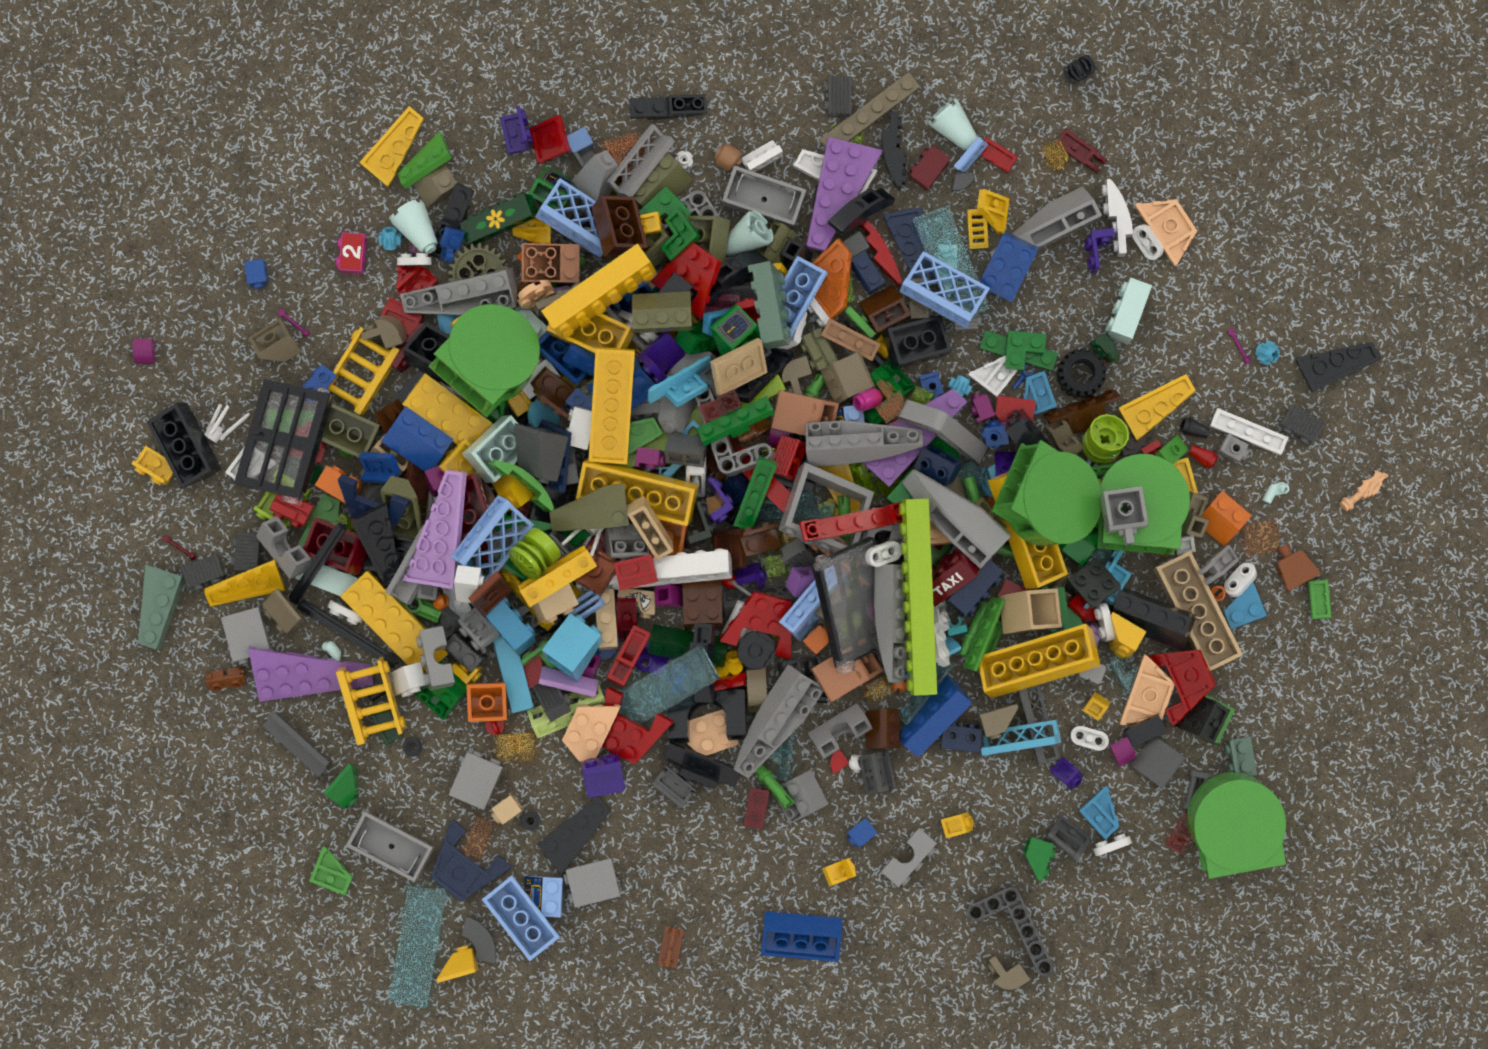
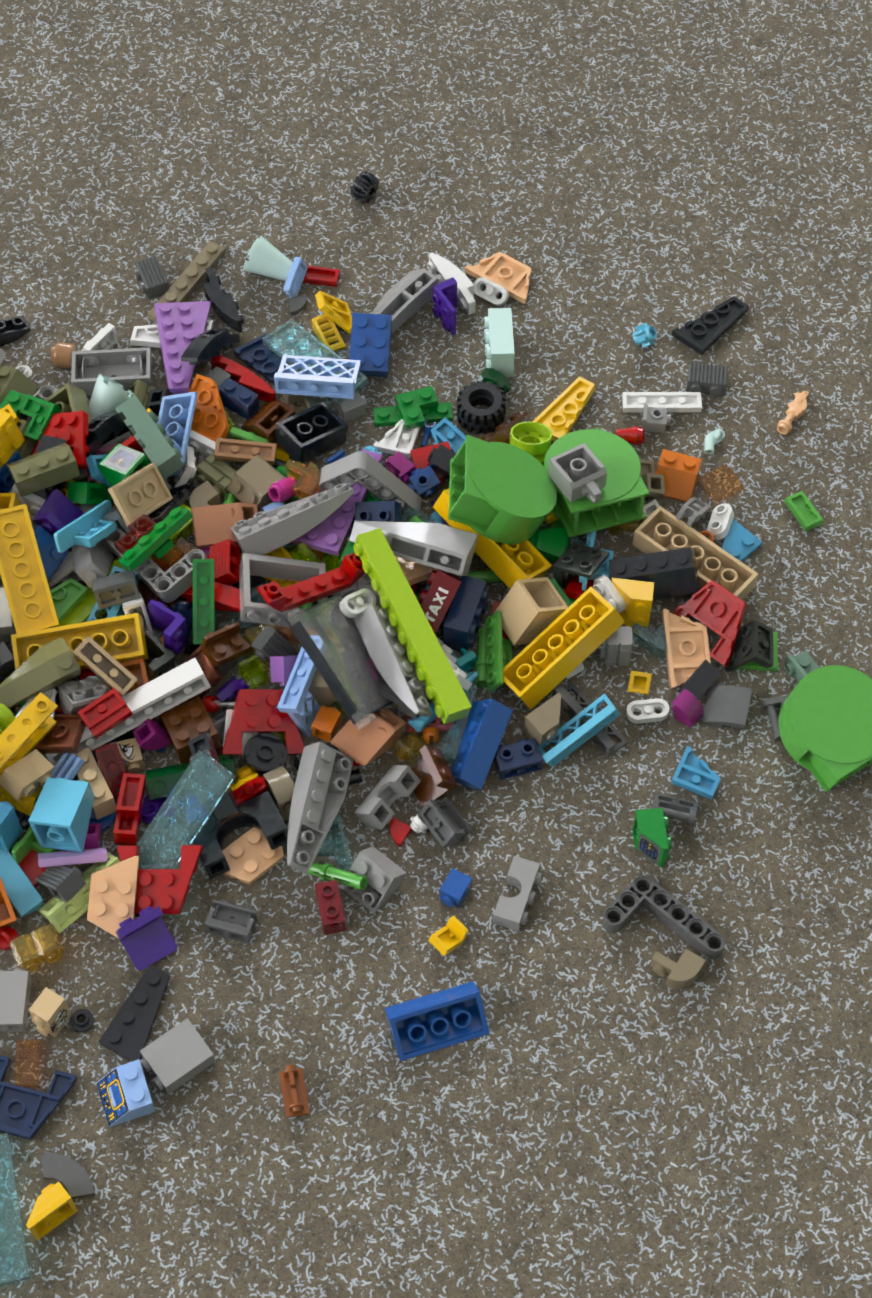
camera: 25 degrees left, 25 degrees down
(521, 918) = (107, 1122): light blue slope -> none
(649, 458) = (81, 611): magenta brick -> none
(701, 767) = (253, 888): black bracket -> none
(929, 168) = (261, 302): dark red brick -> none
(957, 825) = (552, 842): yellow bracket -> none
(1055, 154) = (373, 254): clear yellow bracket -> none
(1067, 773) = (642, 750): dark purple bracket -> none
(1080, 150) = (395, 247): dark red hinge -> none
(1104, 847) = (726, 796): white plate -> none
(1180, 835) = (786, 766): clear red slope -> none
(1193, 428) = (608, 416): black cone -> none
(1231, 332) = (603, 335): magenta hinge -> none
(1294, 568) = (766, 492): dark orange torso -> none

